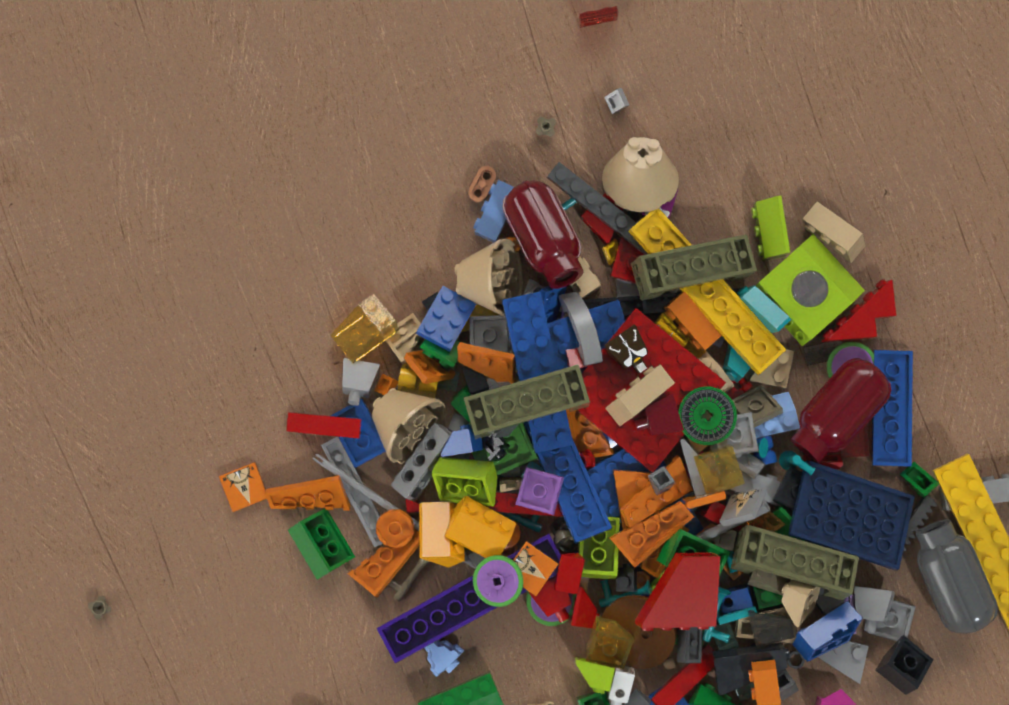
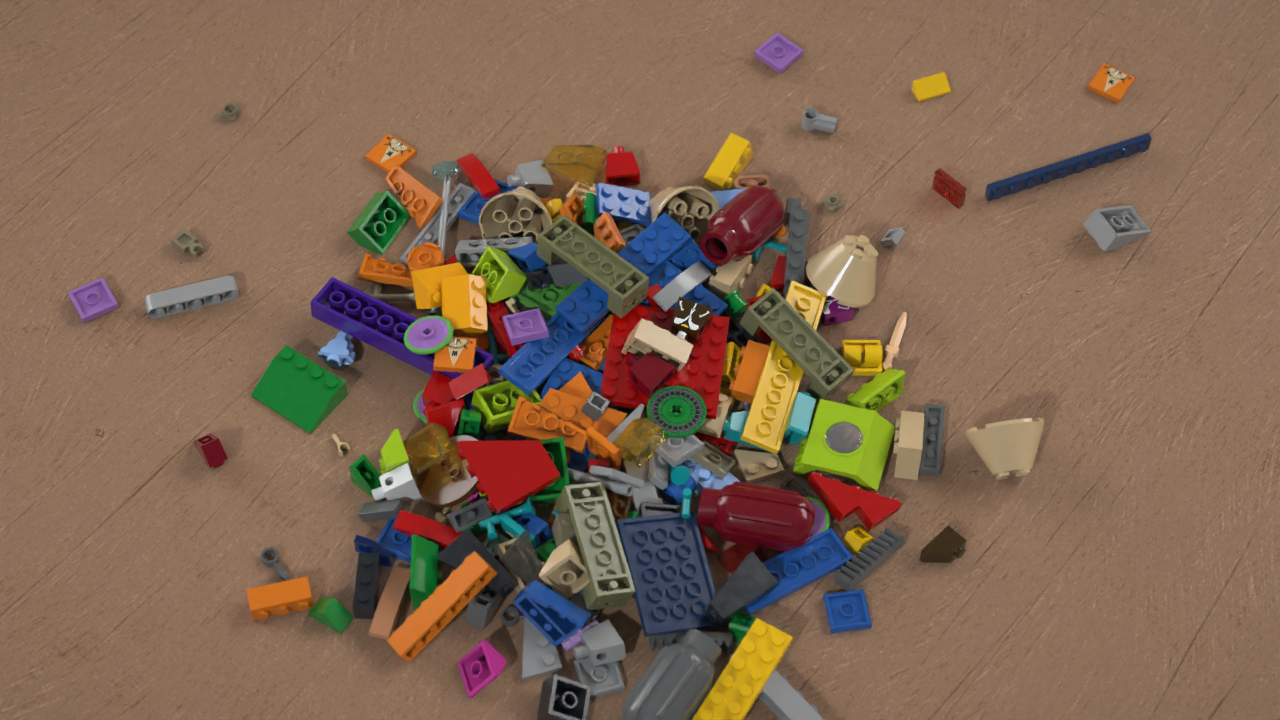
camera: 55 degrees right, 30 degrees down
(293, 448) = (445, 168): none -> clear light blue slope
(345, 61) = (778, 53): none -> medium lavender plate
(392, 289) = (622, 168): none -> red torso
(451, 77) = (813, 120): none -> light grey piece
(451, 192) = (729, 163): none -> yellow wedge
(535, 168) = (794, 203): none -> dark grey slope
(600, 591) = (469, 423): none -> green slope
(613, 288) = (736, 304): none -> green piece
(724, 212) = (863, 356): none -> yellow plate
(731, 181) = (892, 349): none -> light nougat sword
(828, 198) = (932, 440): none -> dark grey gear
(892, 156) = (1007, 445): none -> tan cone
(892, 333) = (857, 539): none -> yellow slope
(899, 466) = (743, 589): none -> black slope
(920, 338) = (869, 559): none -> dark grey gear
(945, 270) = (944, 547): none -> dark brown slope
(952, 386) = (847, 611): none -> blue tile

